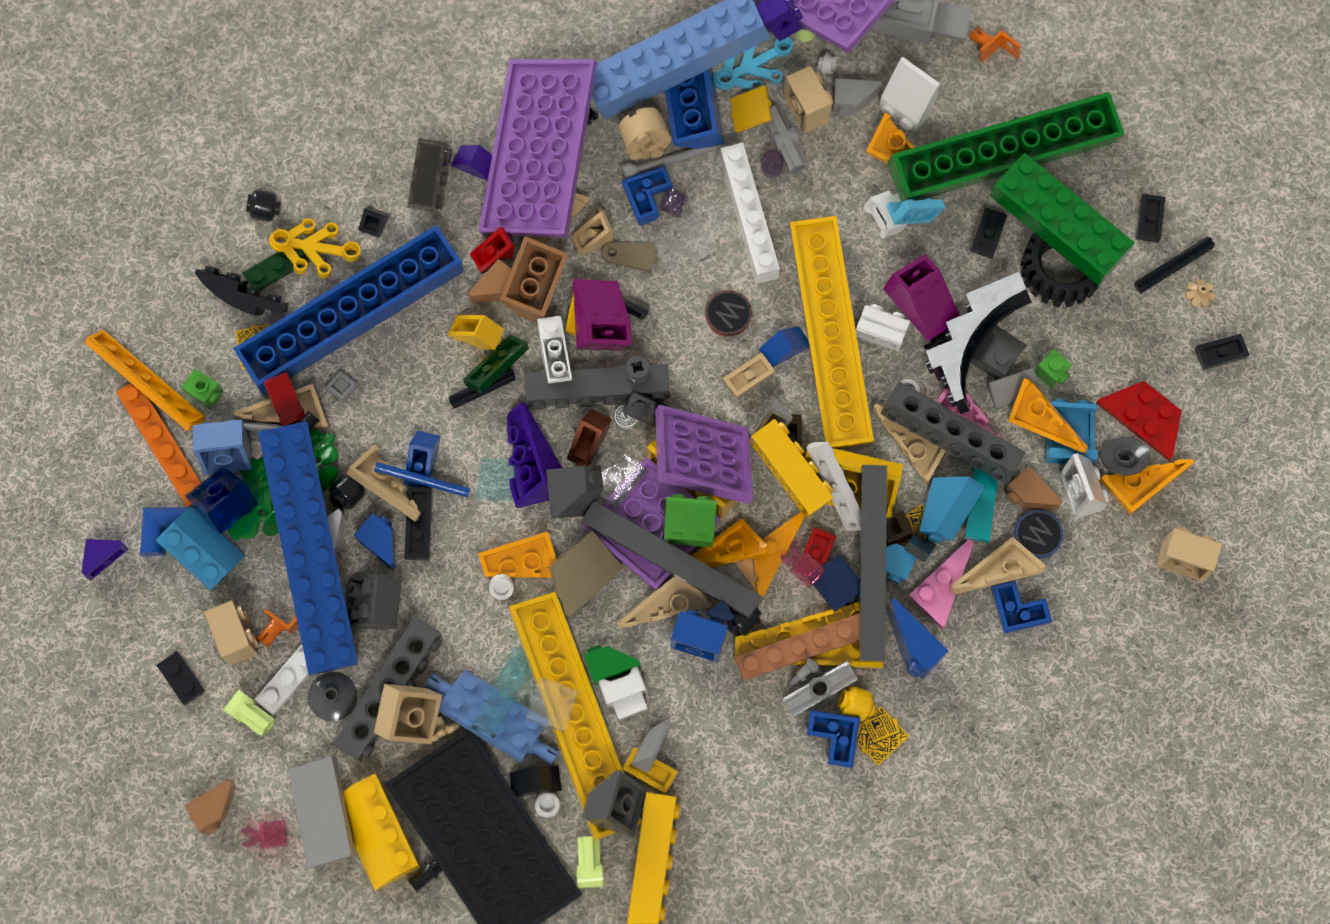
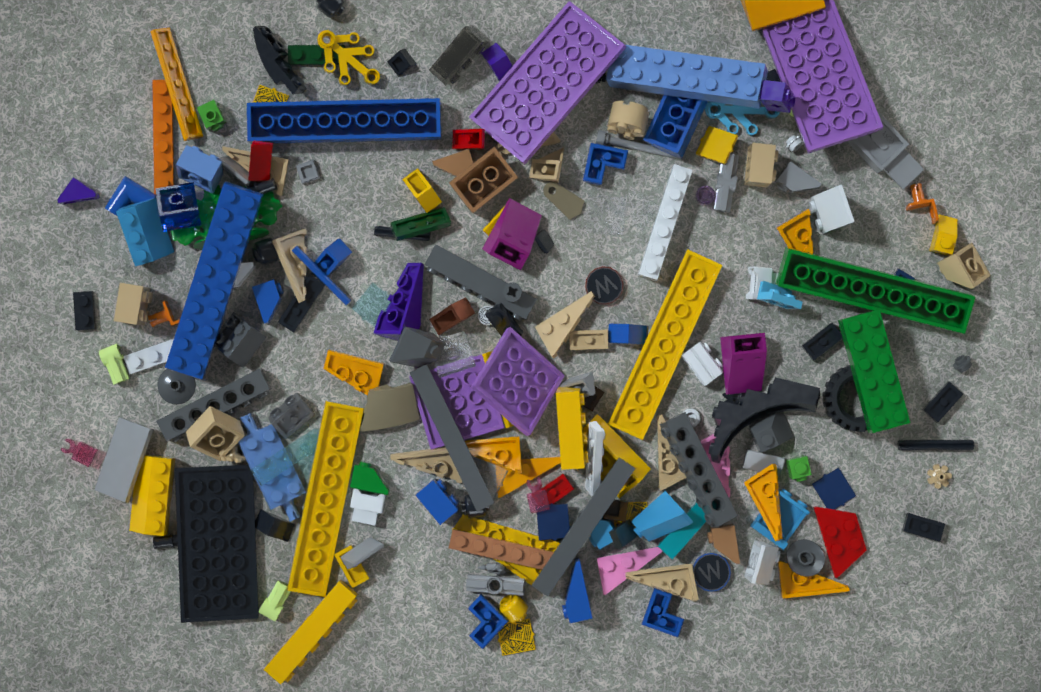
camera: 30 degrees right, 15 degrees up
(211, 807) = (54, 412): medium nougat slope -> none
(480, 648) = (290, 415): none -> flat silver bracket
(501, 586) = (330, 382): white tile -> none
(547, 805) = (272, 546): white tile -> none
(551, 704) = (313, 485): clear piece -> none
(553, 349) = (465, 241): white slope -> none
(616, 804) = (313, 578): dark grey slope -> none
(674, 202) = (617, 181): clear purple wheel -> none
(690, 521) = (478, 424): bright green slope -> none
(709, 382) = (560, 325): none -> tan wing
(720, 612) = (459, 496): dark blue slope -> none
(1038, 62) = (944, 236): none -> yellow slope
(1076, 78) = (964, 267): none -> tan slope
(1104, 372) = (834, 489): none -> dark blue piece
(1143, 169) = (962, 363): none -> dark grey plate
(1189, 554) = (801, 655): tan brick -> none

